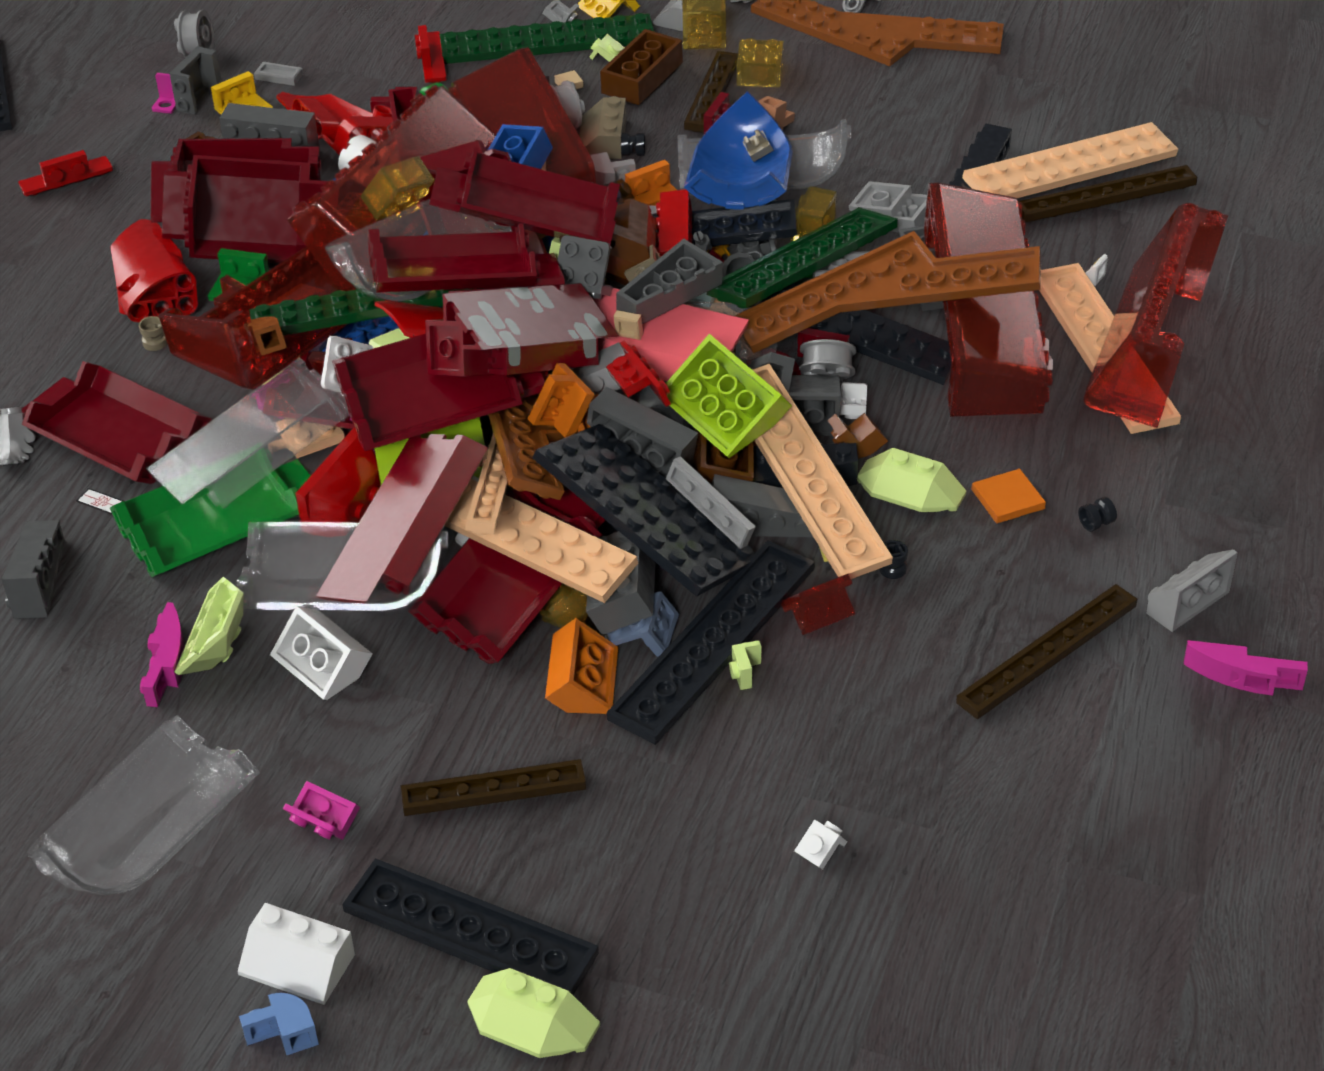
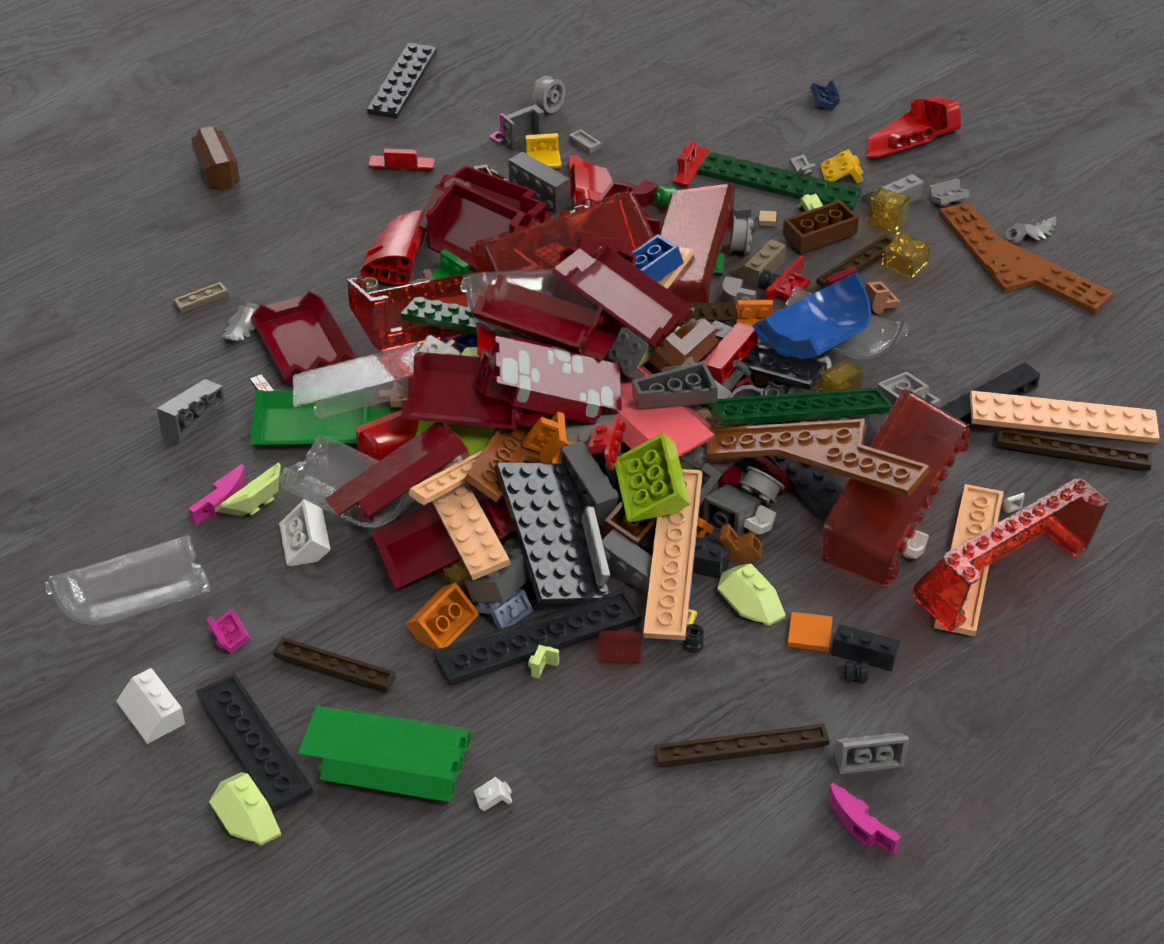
camera: 30 degrees right, 0 degrees up
(267, 335) = (402, 318): dark orange brick -> none
(285, 1017) = (113, 740): medium blue brick -> none
(397, 187) = (543, 252): clear yellow brick -> none
(628, 324) = (631, 405): tan tile -> none
(658, 856) = (387, 752): none -> green panel
(659, 140) = (788, 280): none -> red bracket
(757, 145) = (845, 314): dark tan tile -> none
(1085, 483) = (865, 646): none -> black brick

